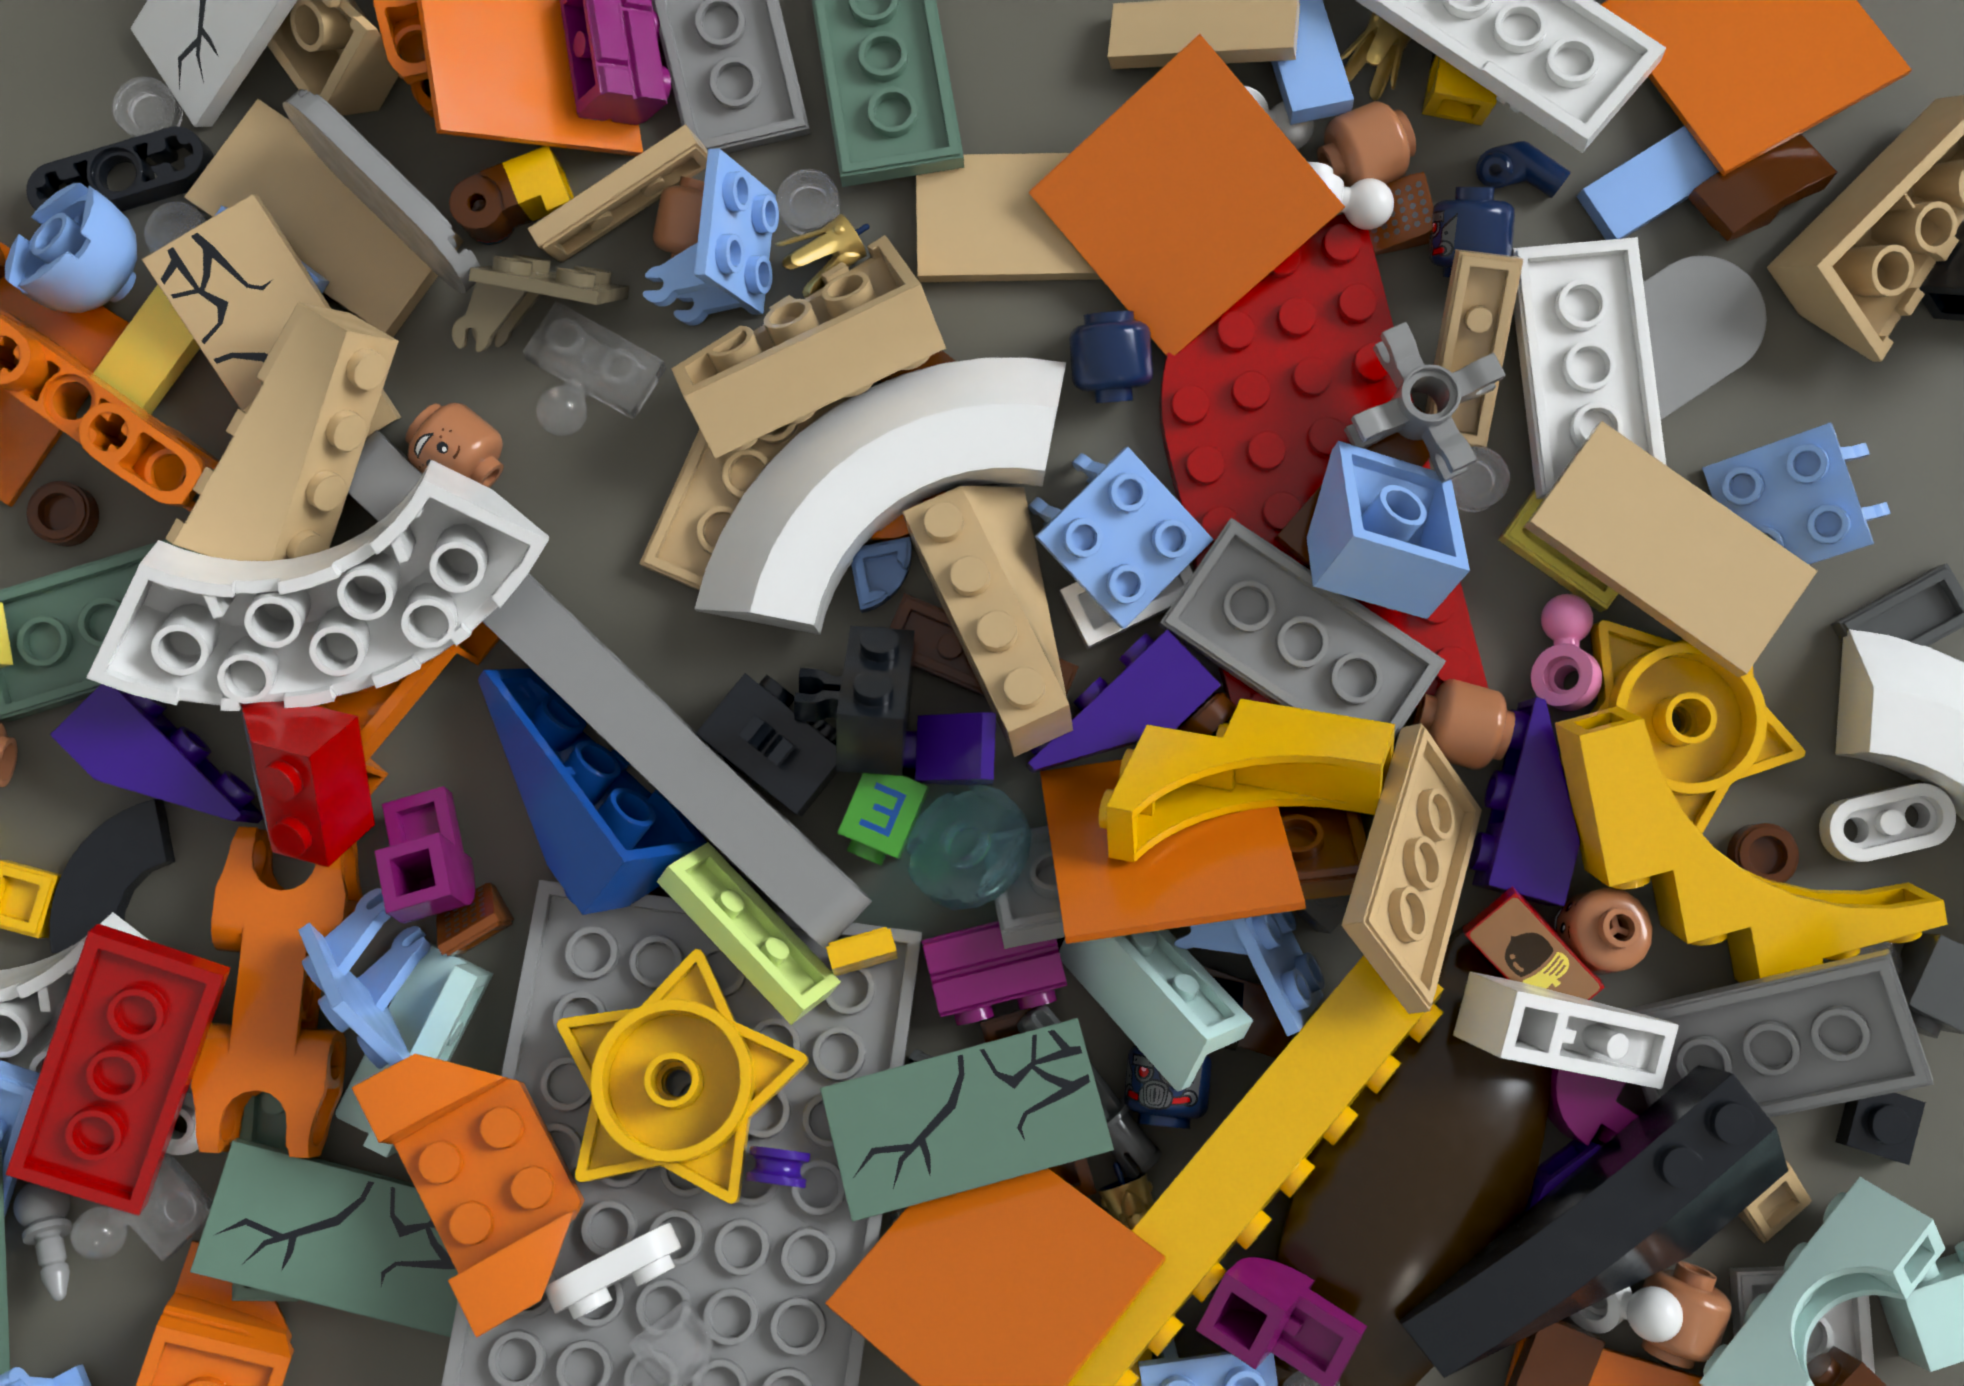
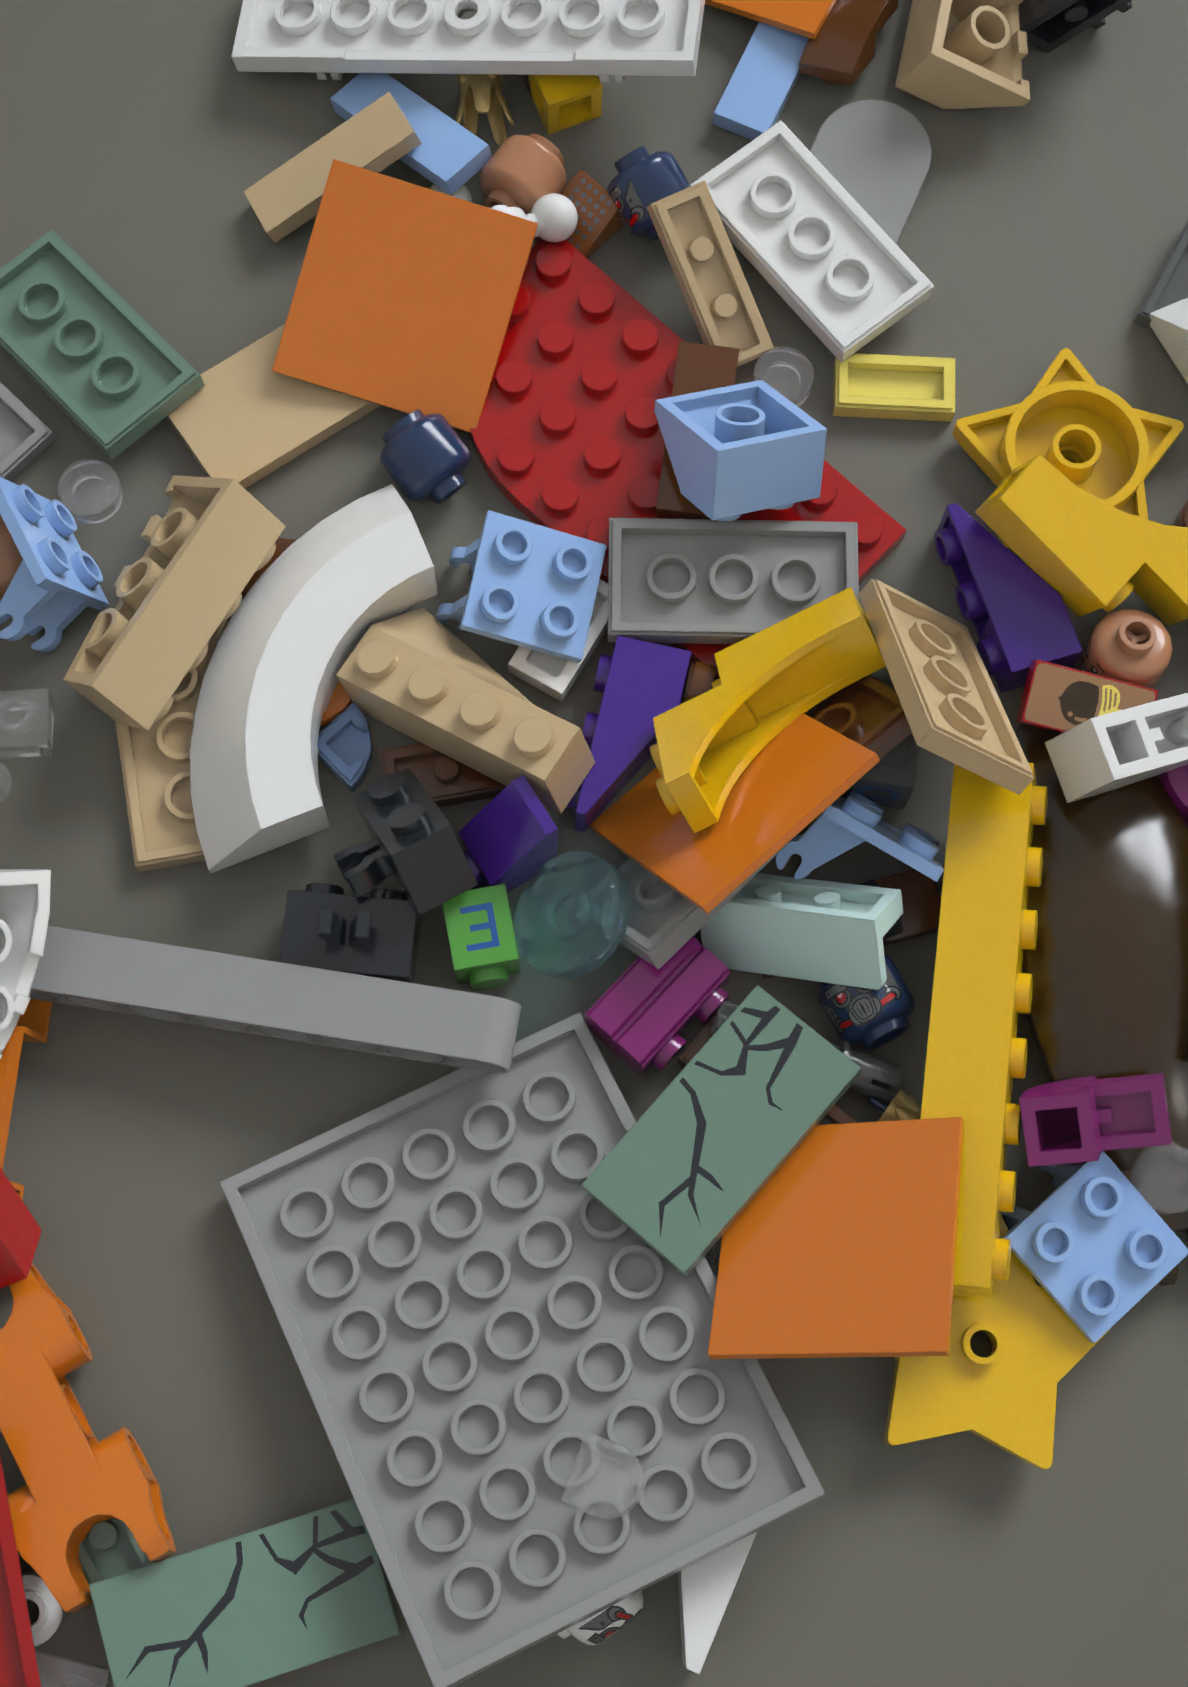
camera: 35 degrees left, 10 degrees down
(363, 1000) = (131, 1372): light blue plate -> none
(426, 862) = (104, 1224): magenta brick -> none
(431, 1017) = (197, 1405): light aqua panel -> none
(472, 924) = (182, 1259): dark orange slope -> none
(482, 1175) = (333, 1448): orange piece -> none
(587, 1286) = (494, 1474): white plate -> none
(591, 817) = (231, 1099): blue wedge -> none
(627, 1066) = (443, 1212): yellow plate -> none
(748, 932) = (433, 1099): yellowish green plate -> none
(778, 1166) = (590, 1270): dark purple bush -> none
(836, 239) = (134, 504): pearl gold piece -> none
(861, 951) = (541, 1051): yellow tile -> none
(1402, 361) = (708, 311): light grey pin -> none
(1467, 723) = (909, 560): nougat head -> none
(1520, 163) = (652, 123): dark blue arm -> none
(1566, 622) = (931, 441): bright pink plate -> none
(1671, 549) = (970, 329): tan tile -> none
(1799, 494) = (1038, 246): light blue plate -> none

